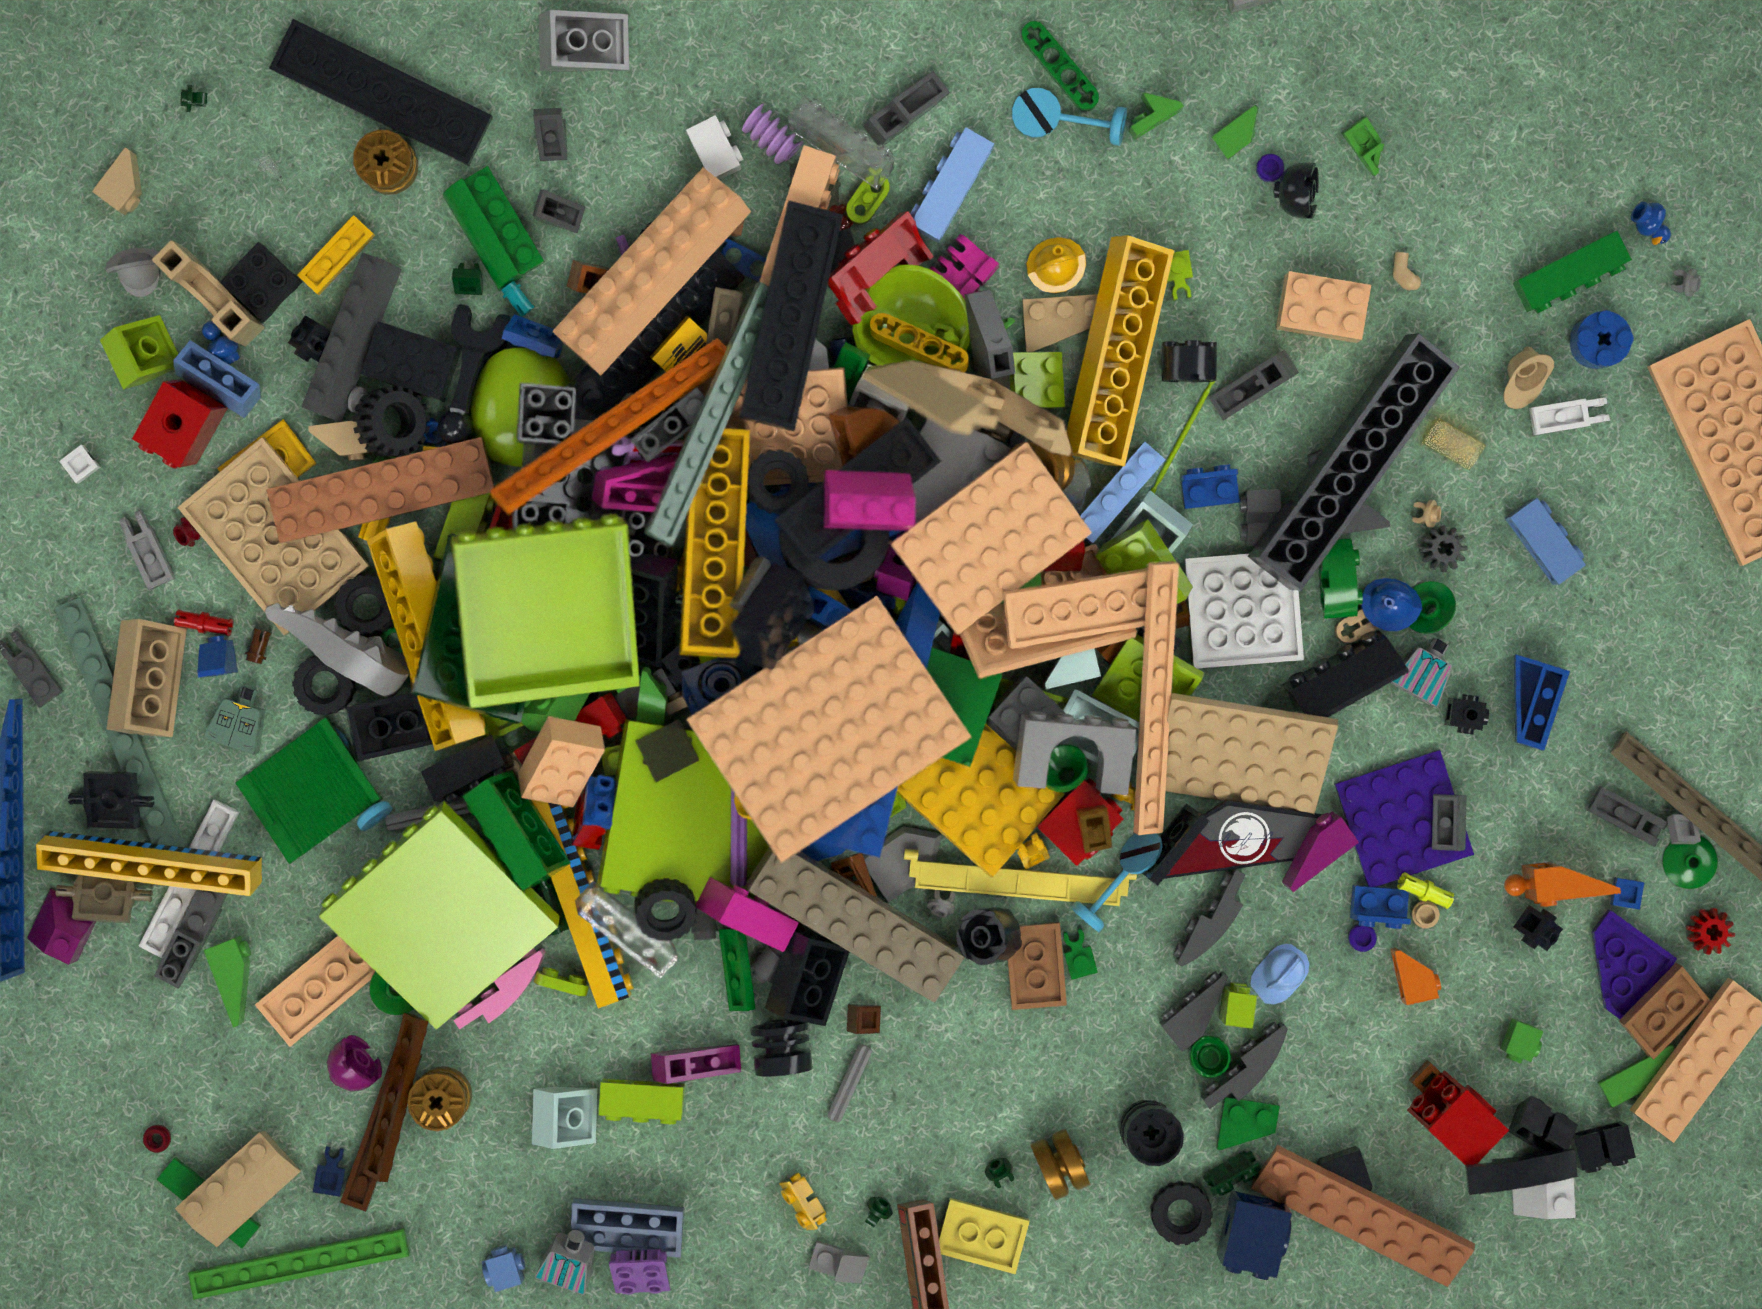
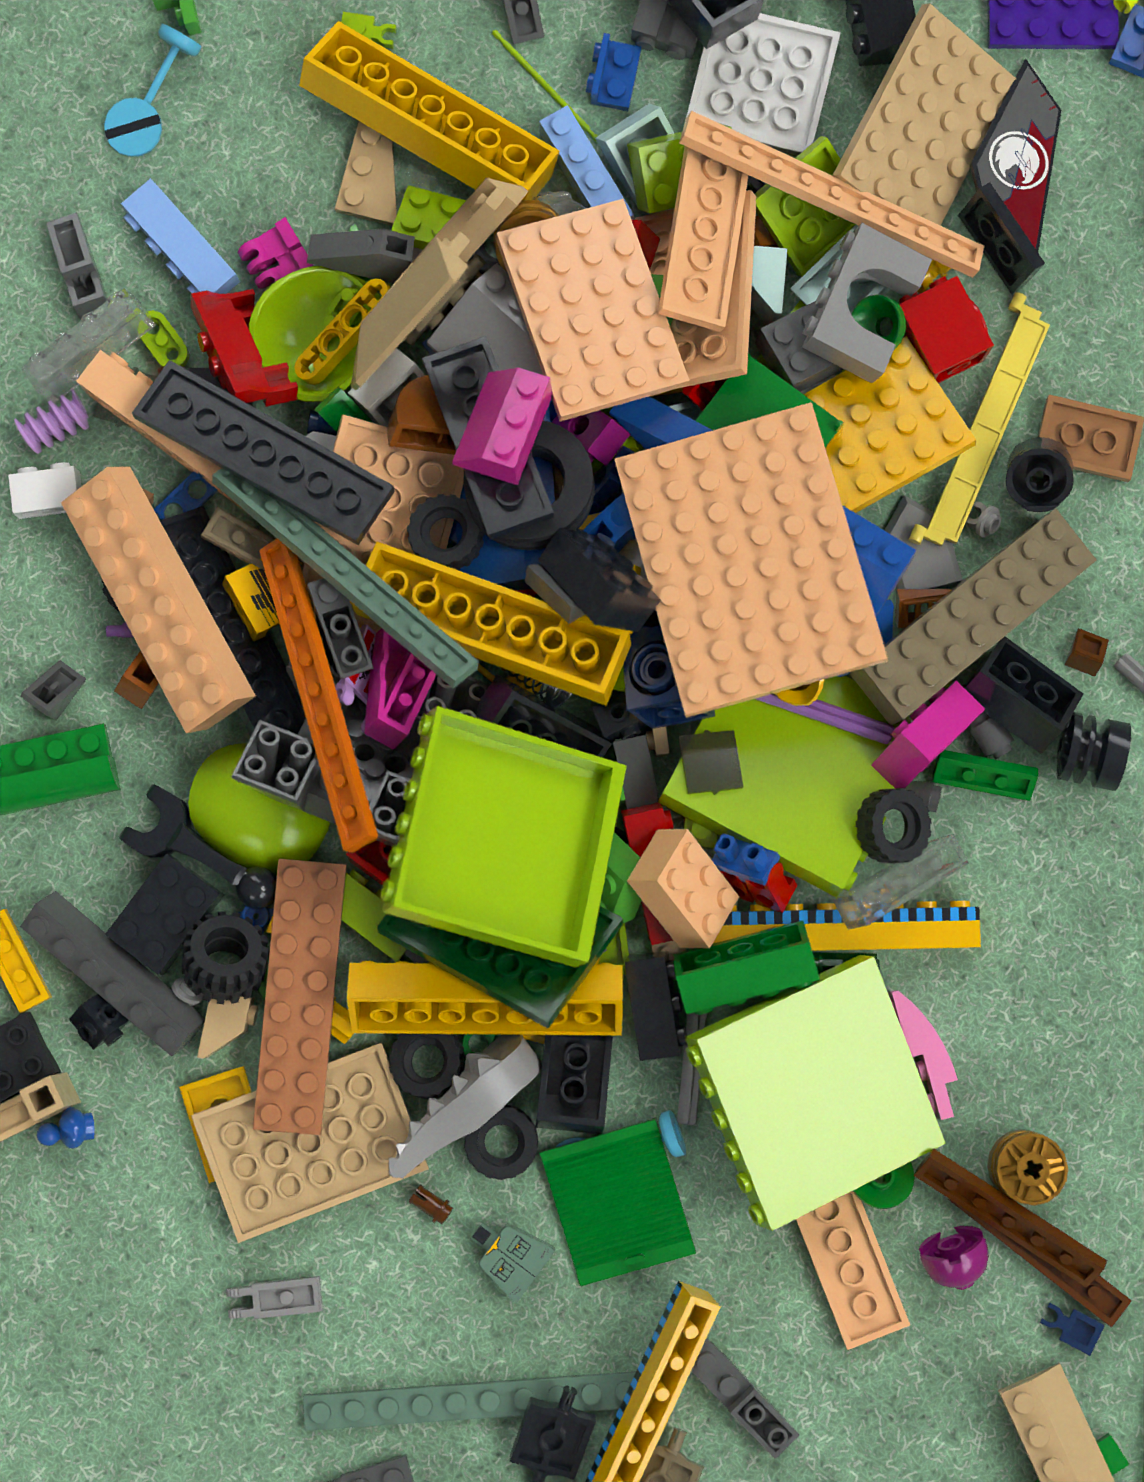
camera: 70 degrees left, 5 degrees down
(79, 464) = (148, 1342): white plate -> none
(140, 351) = (43, 1226): lime slope -> none
(146, 678) = (424, 1348): tan slope -> none
(177, 900) = (695, 1399): white tile -> none
(179, 424) = (142, 1228): red brick -> none
(185, 533) = (271, 1244): dark red plate -> none
(203, 622) = (382, 1259): red pin -> none
(216, 657) = (428, 1256): blue slope -> none
(217, 379) = (106, 1145): medium blue brick -> none
(231, 972) = (796, 1365): bright green slope -> none
(467, 280) = (95, 819): dark green tile -> none
(517, 298) = (136, 770): teal pin -> none
(532, 336) = (184, 763): blue bracket -> none
(564, 1116) = (1093, 1031): light aqua slope -> none
(573, 985) = (943, 969): lime plate -> none
(641, 1100) = (1102, 934): lime brick -> none
(652, 699) = (647, 764): bright green slope -> none
(695, 1063) = (1078, 859): magenta slope -> none
(1032, 852) = (959, 393): yellow hinge -> none
(1056, 265) = (309, 159): yellow helmet -> none
(1057, 68) = (89, 78): green beam -> none
(1080, 958) = (1097, 387): green plate -> none
(1094, 828) = (957, 307): pearl gold slope -> none
(1135, 858) = (1001, 284): medium azure piece -> none
(1189, 361) = (468, 46): black brick -> none
(1206, 930) = (1109, 234): dark grey slope -> none
(1321, 847) = (1057, 82): magenta slope -> none

